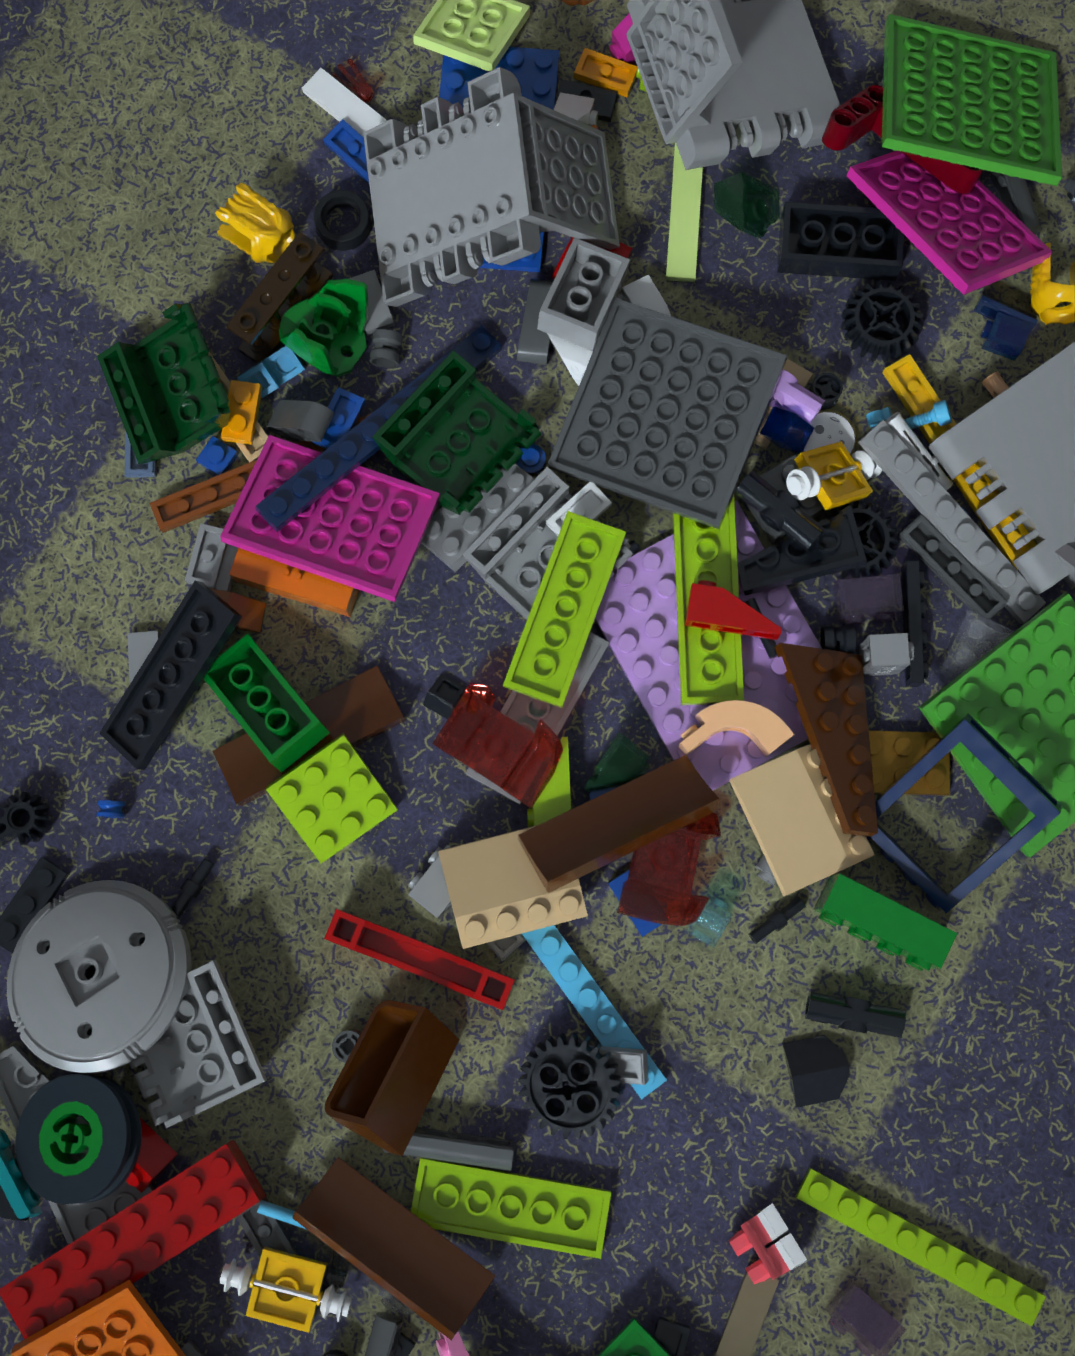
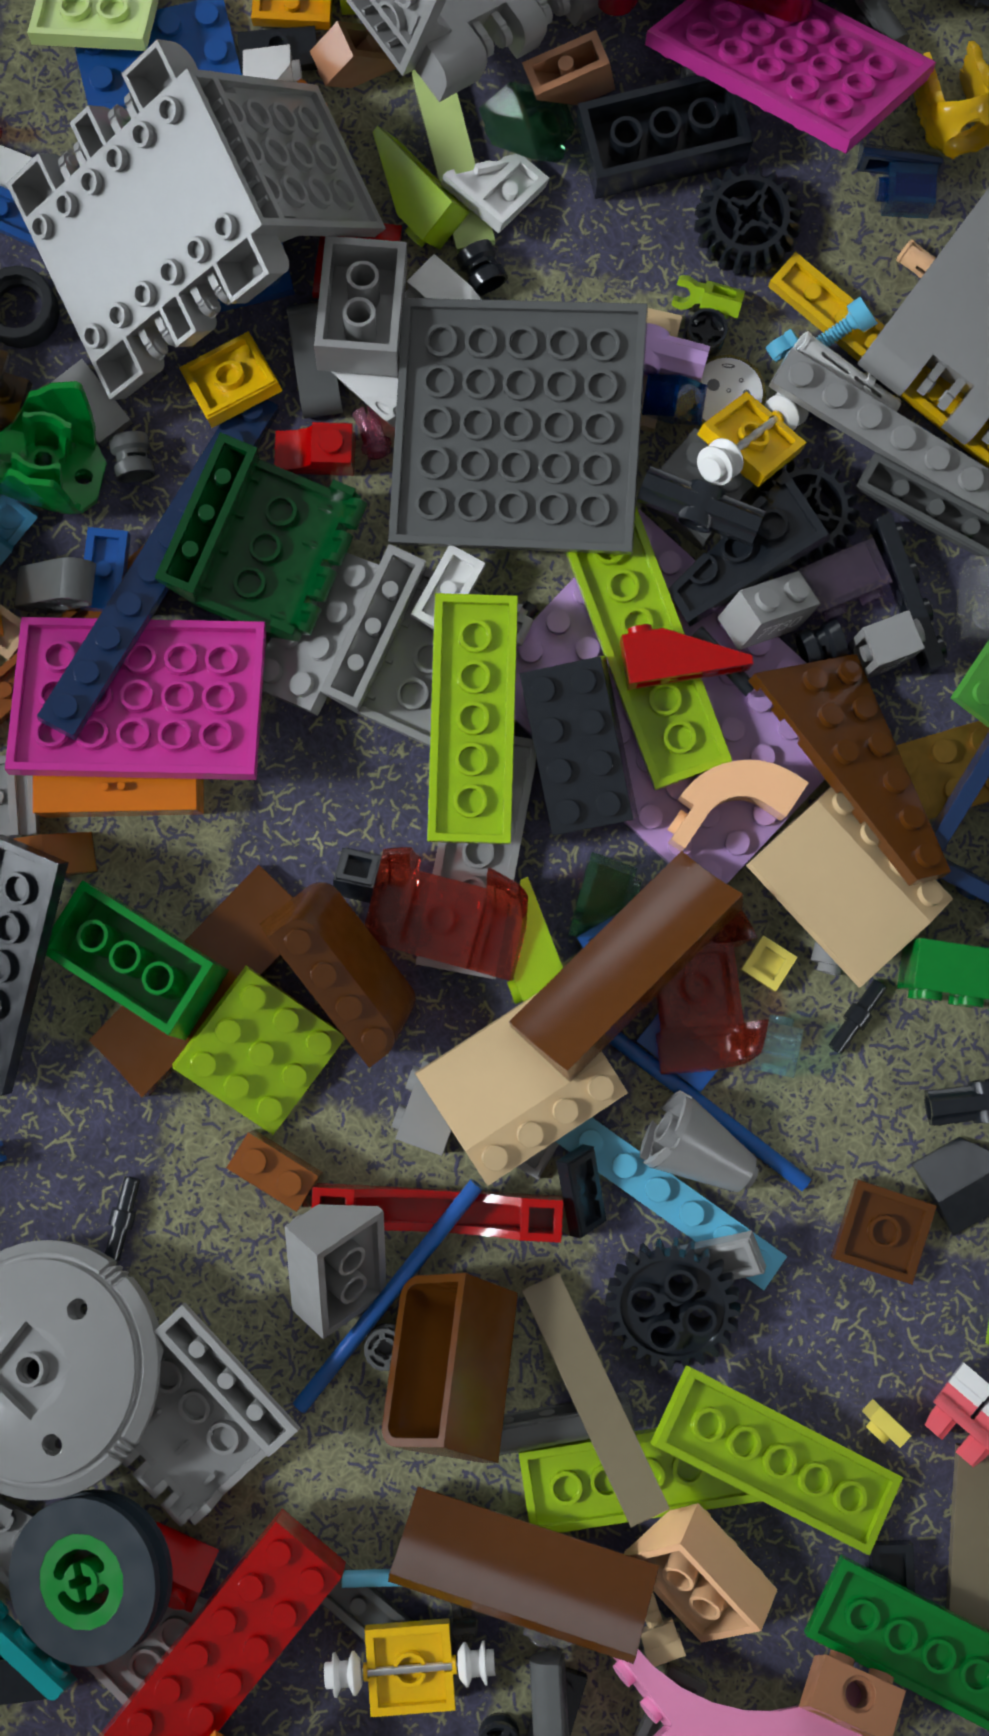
camera: 20 degrees left, 5 degrees up
(313, 888) = (274, 1170): none -> dark orange brick
(334, 970) = (335, 1263): none -> light grey slope
(363, 1009) = (387, 1296): none -> blue piece
(412, 758) = (343, 968): none -> reddish brown windscreen
(474, 316) = (230, 379): none -> yellow tile
(479, 1334) = (660, 1637): none -> tan piece
(489, 1137) = (595, 1401): none -> dark tan tile
(519, 385) = (317, 449): none -> red arch
(527, 1297) = (705, 1575): none -> light nougat slope
(530, 979) = (581, 1191): none -> black plate
(532, 459) = (366, 540): blue plate -> none
(562, 391) = (374, 441): none -> clear pink pin
(609, 1228) = (776, 1460): none -> lime plate
(627, 976) = (697, 1147): none -> light grey cone
(633, 119) = (349, 56): none -> nougat slope
(636, 653) = (579, 745): none -> black brick
(645, 953) = (742, 1134): none -> blue piece
(650, 229) = (417, 194): none -> lime slope
(679, 294) = (481, 267): none -> black wheel
(697, 1231) = (884, 1425): none -> light yellow plate
(709, 243) = (497, 188): none -> white wing
(723, 859) = (768, 963): none -> light yellow plate
(745, 1085) = (883, 1231): none -> reddish brown plate
(788, 178) = (571, 72): none -> nougat slope
(806, 601) = (768, 610): none -> light grey brick
(838, 365) = (709, 295): none -> lime plate

